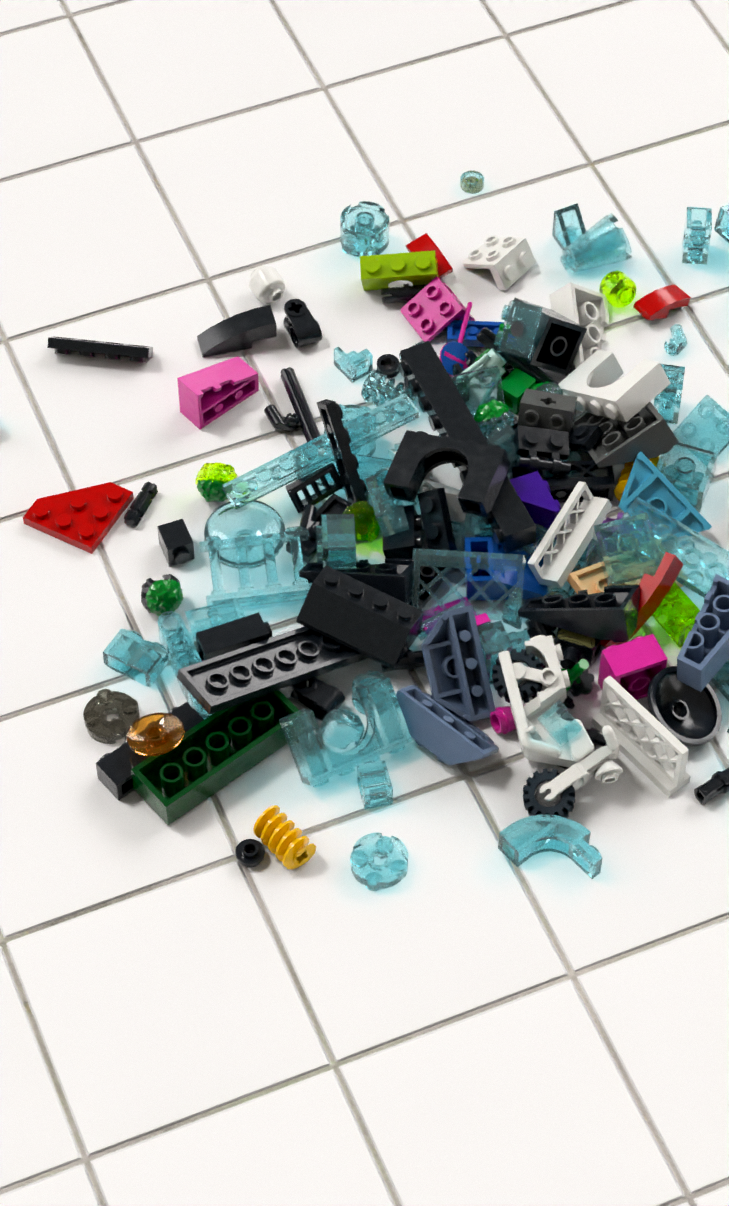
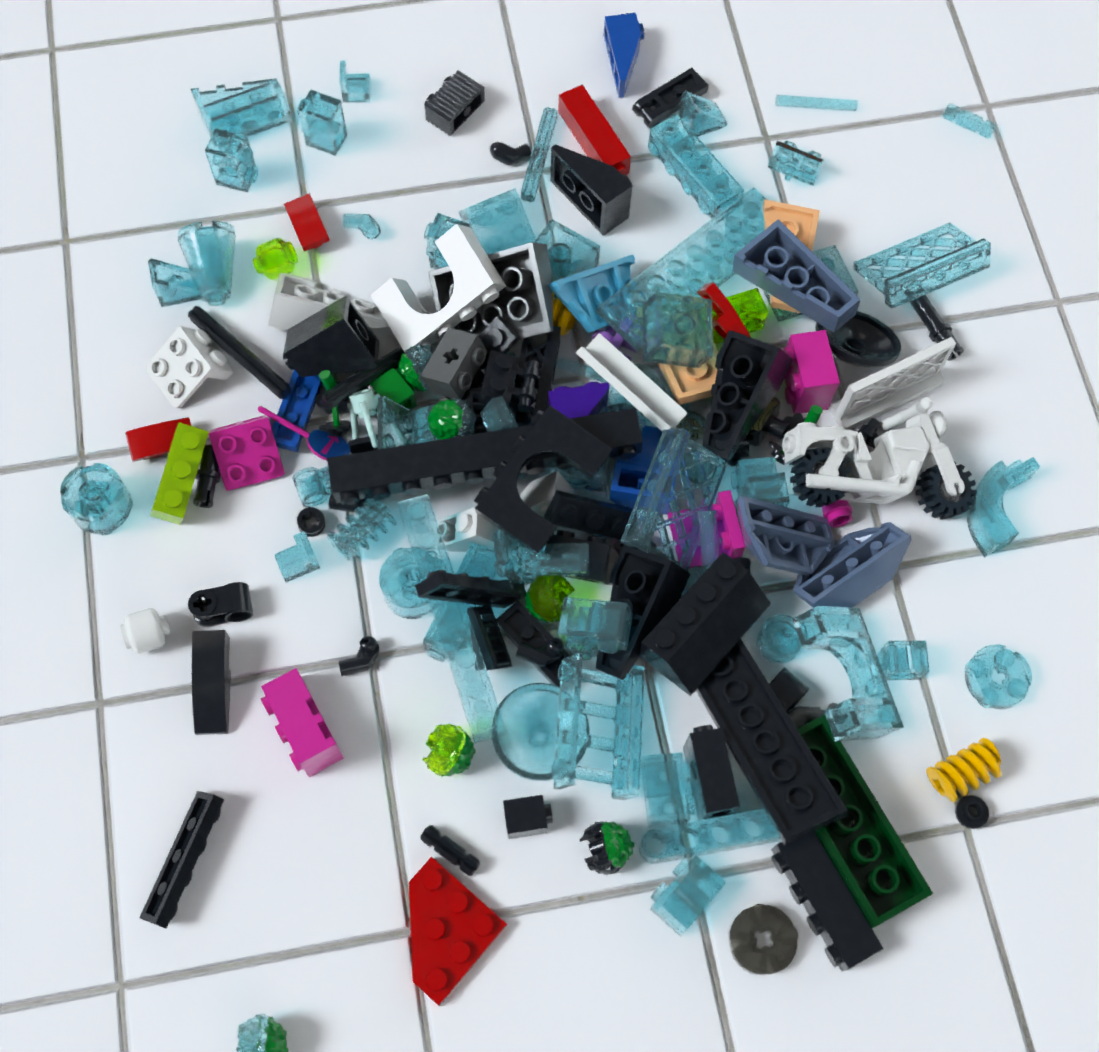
camera: 80 degrees left, 15 degrees up
(155, 734) = (840, 869): clear orange dish -> none
(299, 404) = (347, 631): black axle -> none
(341, 728) = (831, 679): clear light blue hair -> none
(472, 182) = (50, 368): clear light blue tile -> none
(522, 284) = (240, 352): none -> black axle
(529, 318) = (346, 357): clear light blue brick -> none
(559, 723) = (898, 451): clear light blue panel -> none

